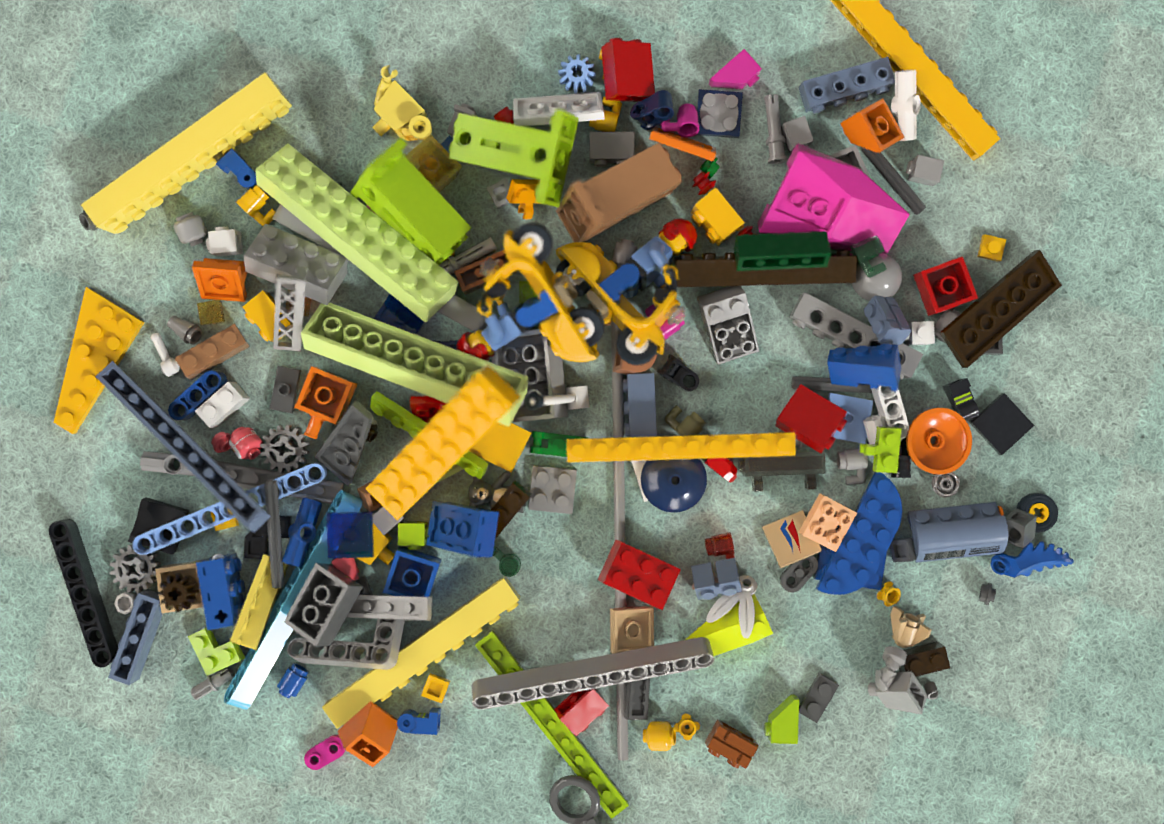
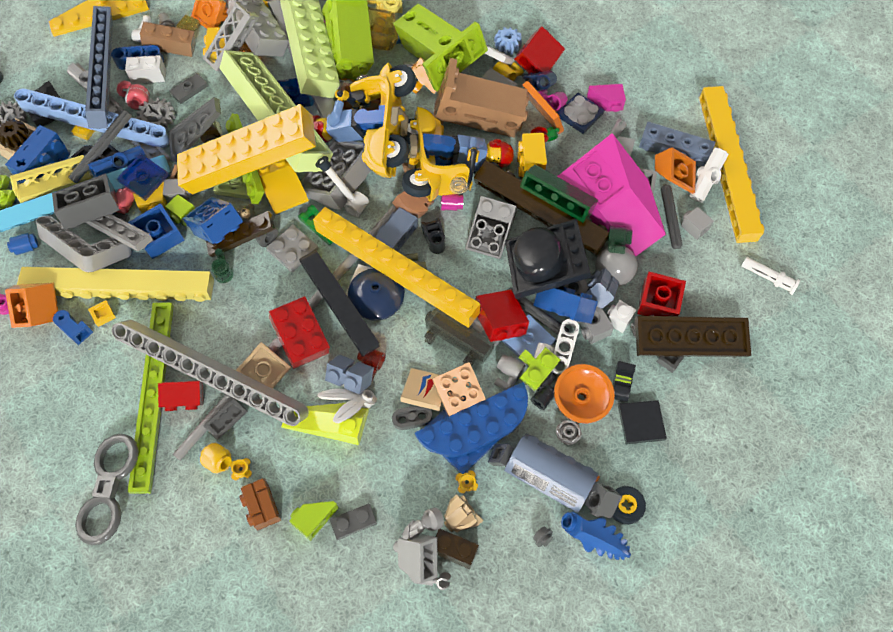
camera: 35 degrees right, 25 degrees down
(324, 398) = (200, 94): orange brick -> none
(651, 519) = (339, 303): none -> black beam
(723, 467) = (416, 306): red rock -> none
(818, 332) = (547, 258): none -> black piece
(991, 248) = (713, 301): yellow plate -> none
(1039, 178) = (779, 279): none -> white pin

